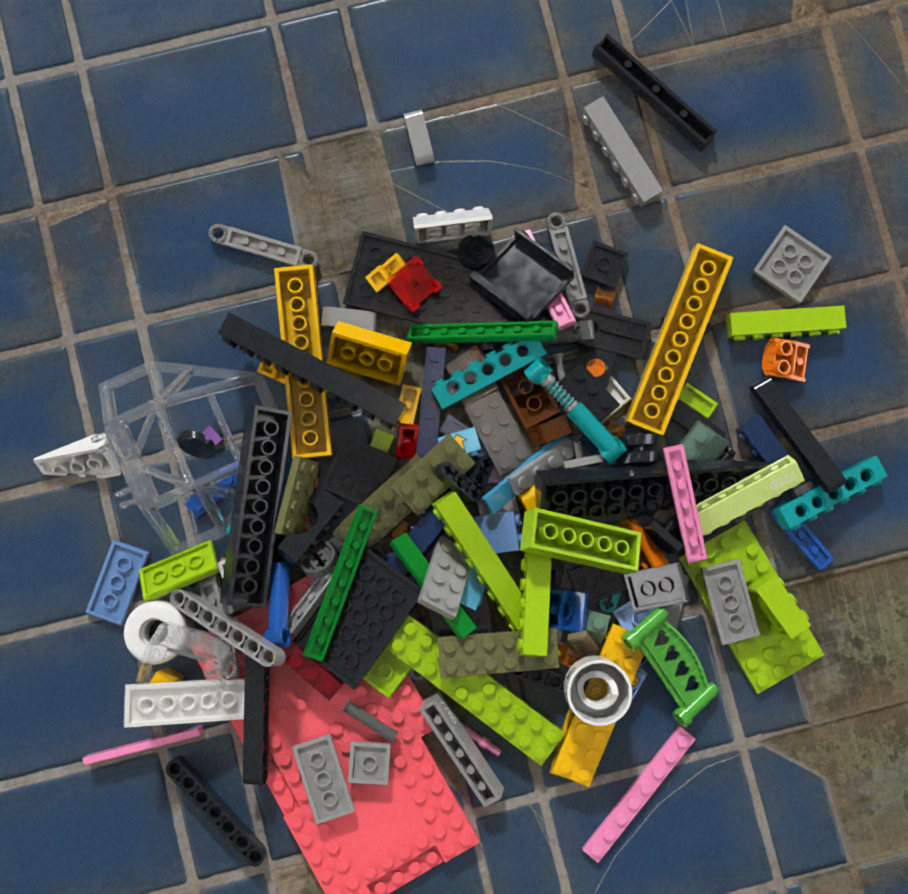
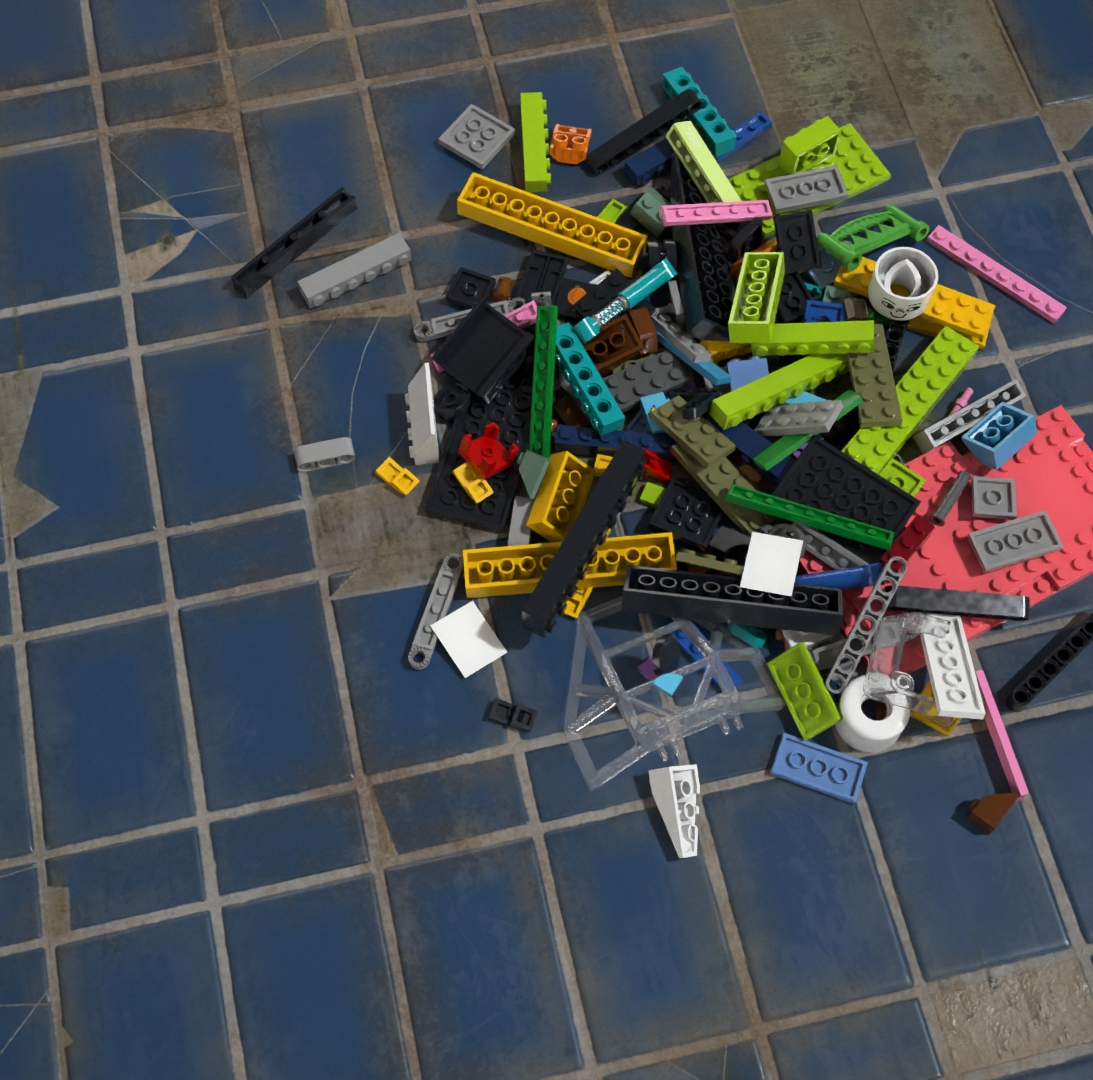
camera: 85 degrees left, 20 degrees down
(75, 732) = (991, 810): none -> reddish brown slope
(163, 443) = (668, 683): none -> medium azure tile
(167, 316) = (512, 715): none -> black slope
(236, 276) = (468, 639): none -> white sticker
(286, 543) = (771, 564): none -> white sticker
(394, 325) = (532, 470): none -> sand green slope
(398, 206) = (397, 477): none -> yellow slope
(435, 775) = (1000, 434): none -> dark azure slope

